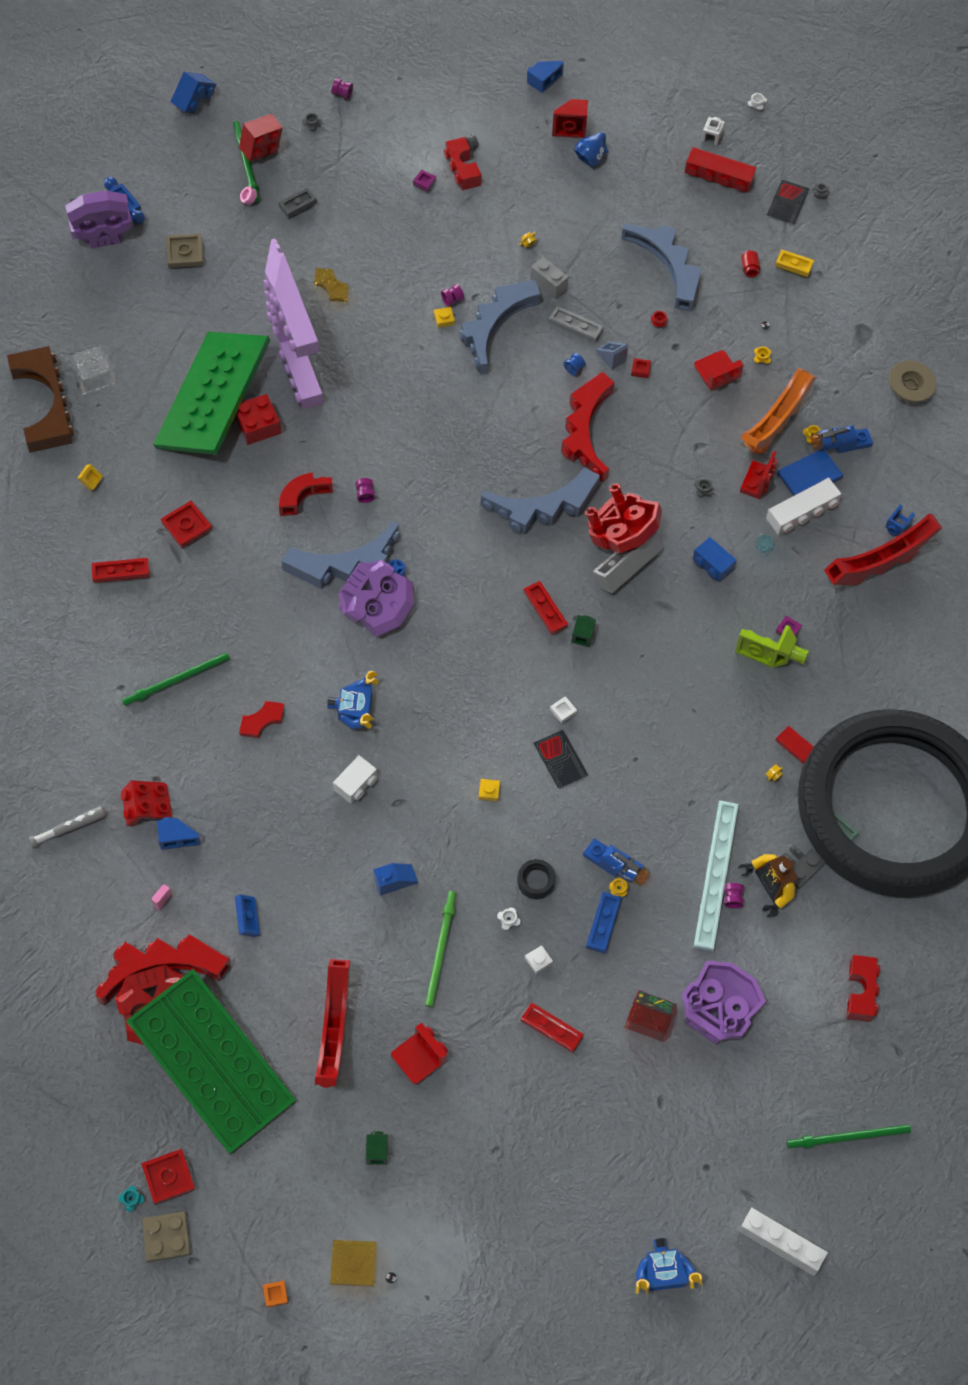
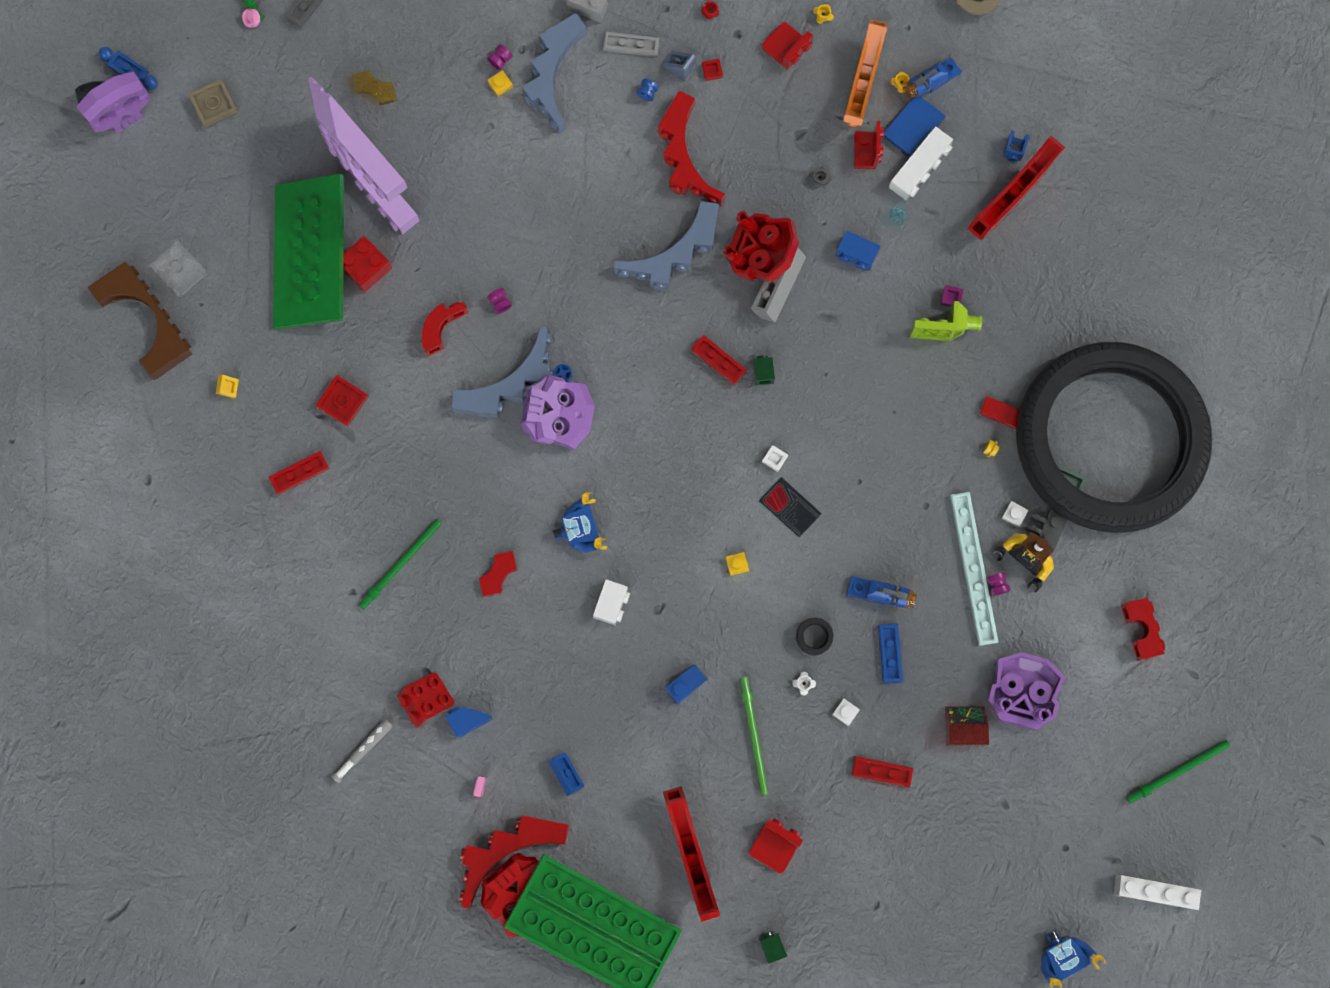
camera: 20 degrees left, 15 degrees up
(619, 882) = (891, 610): yellow plate -> none
(775, 840) = (1014, 514): none -> white plate

